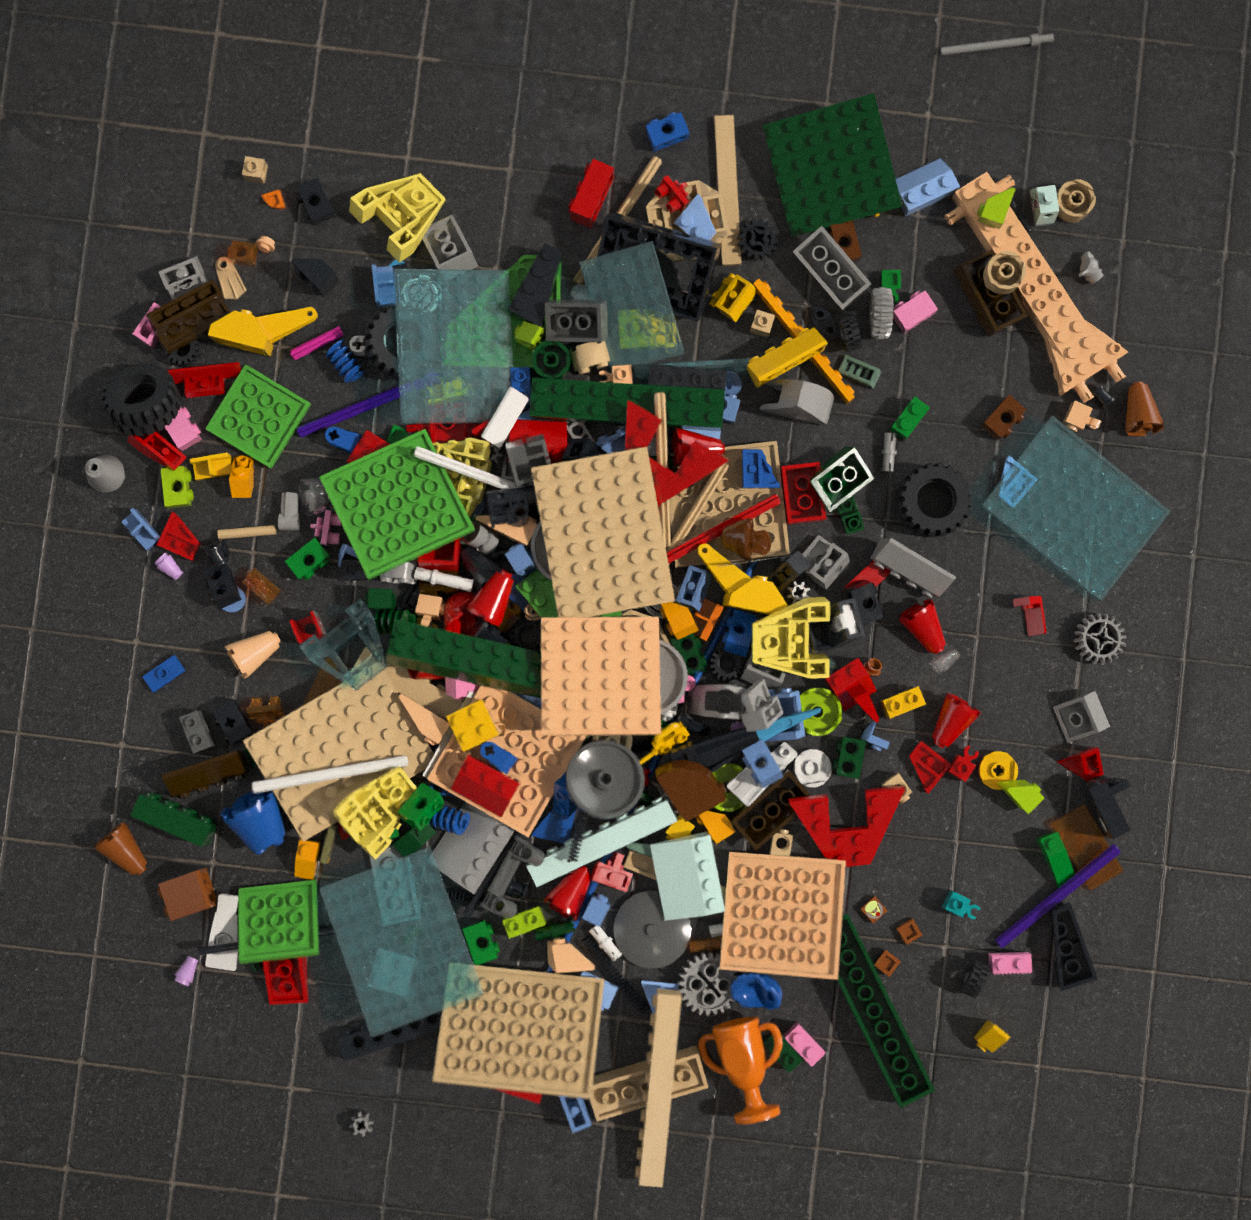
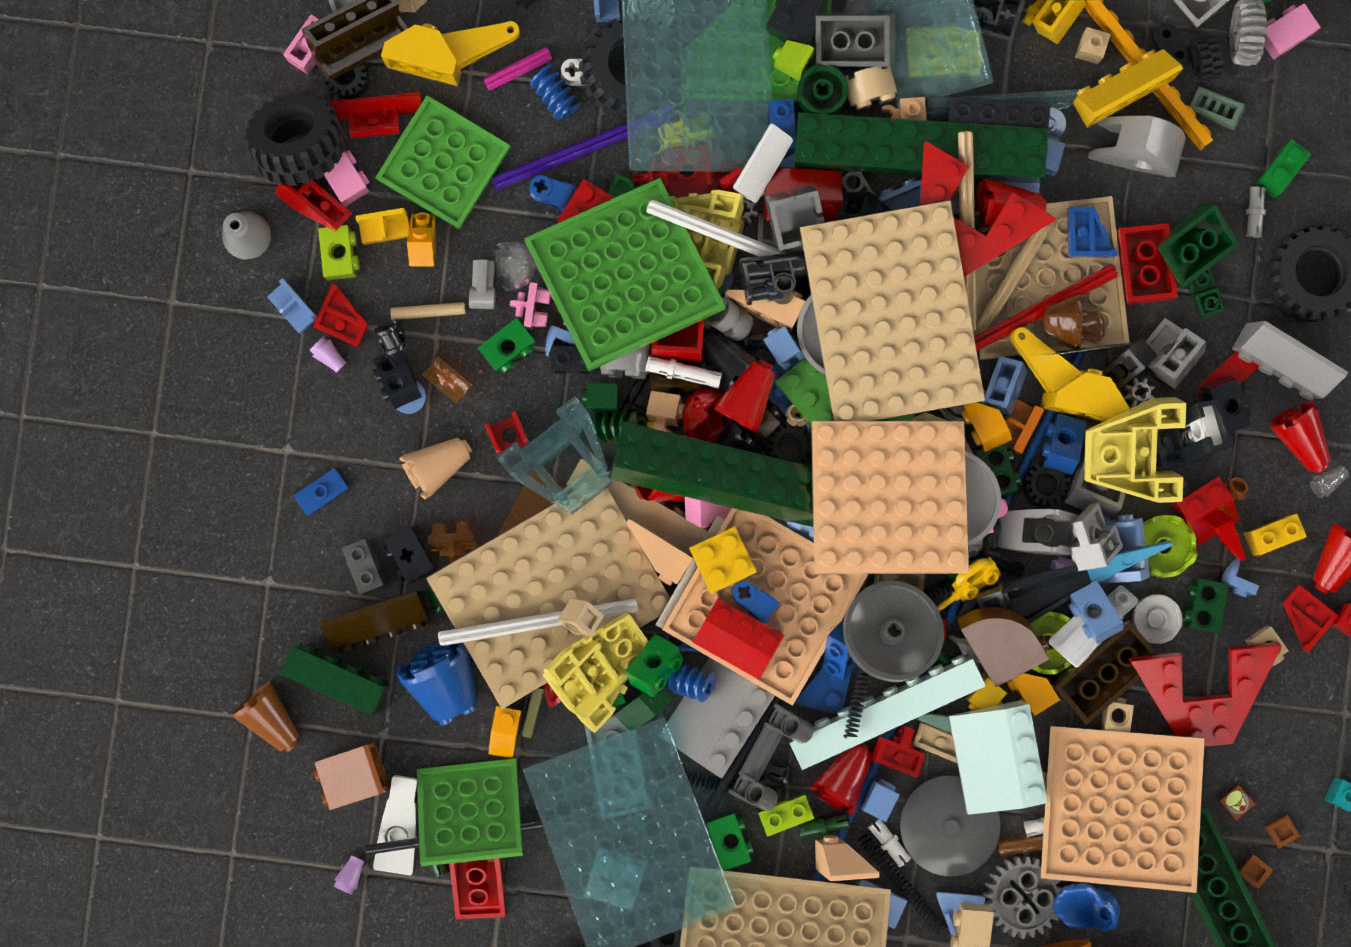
camera: 10 degrees right, 0 degrees up
(362, 770) = (580, 617): none -> tan brick

